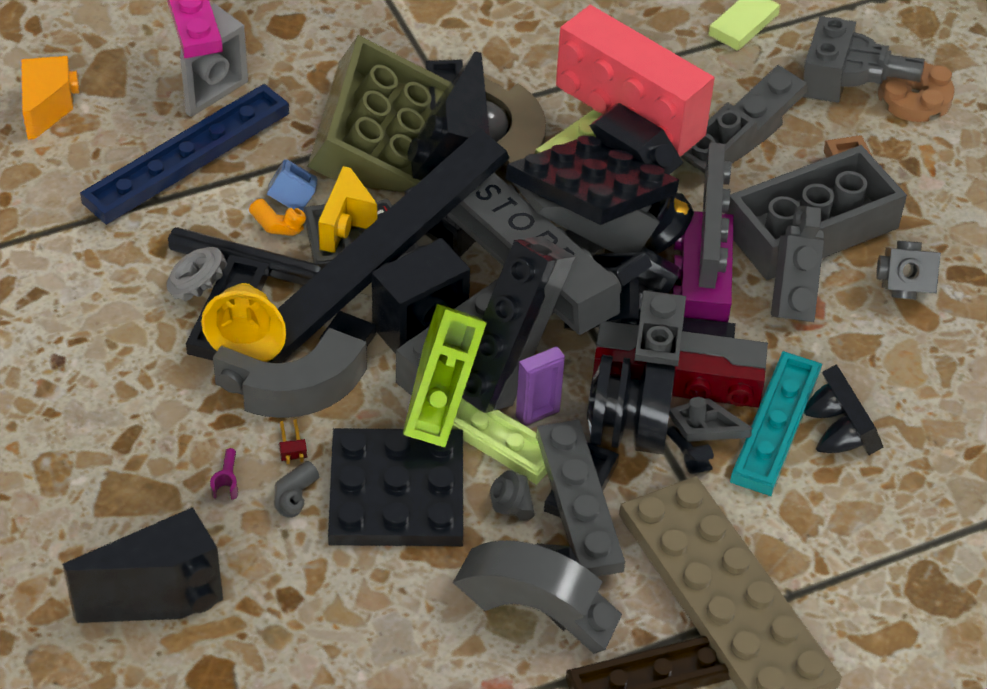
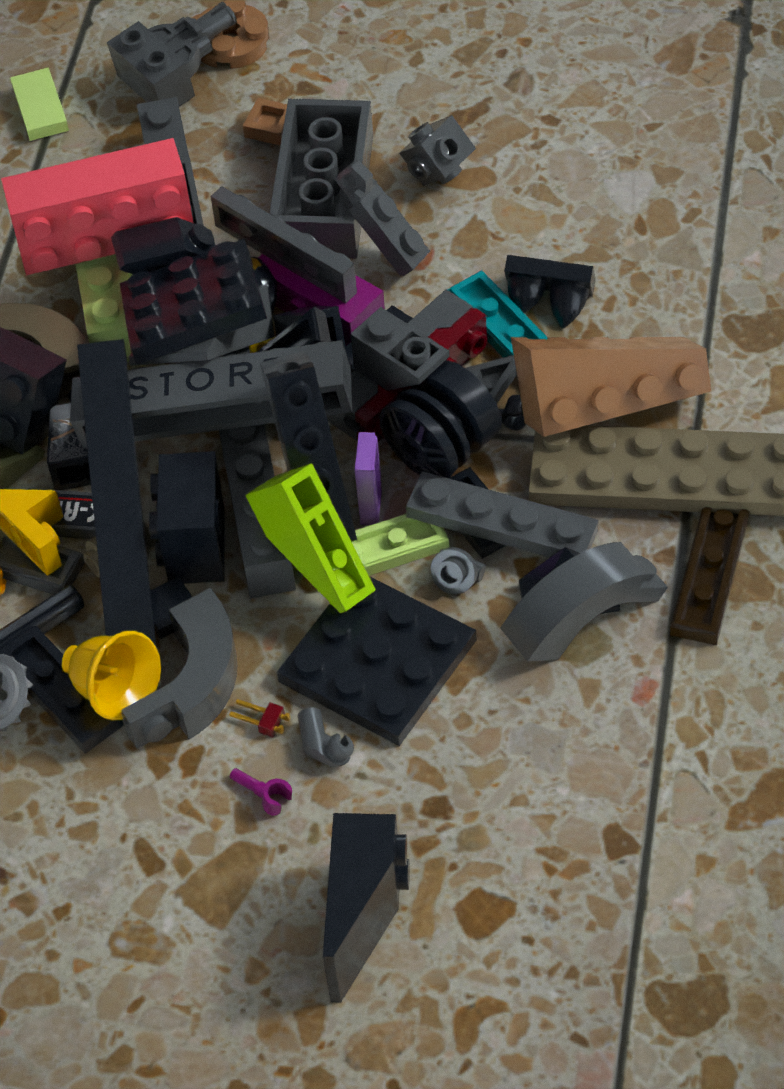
camera: 50 degrees left, 5 degrees up
(764, 491) = (603, 378): none -> medium nougat wedge

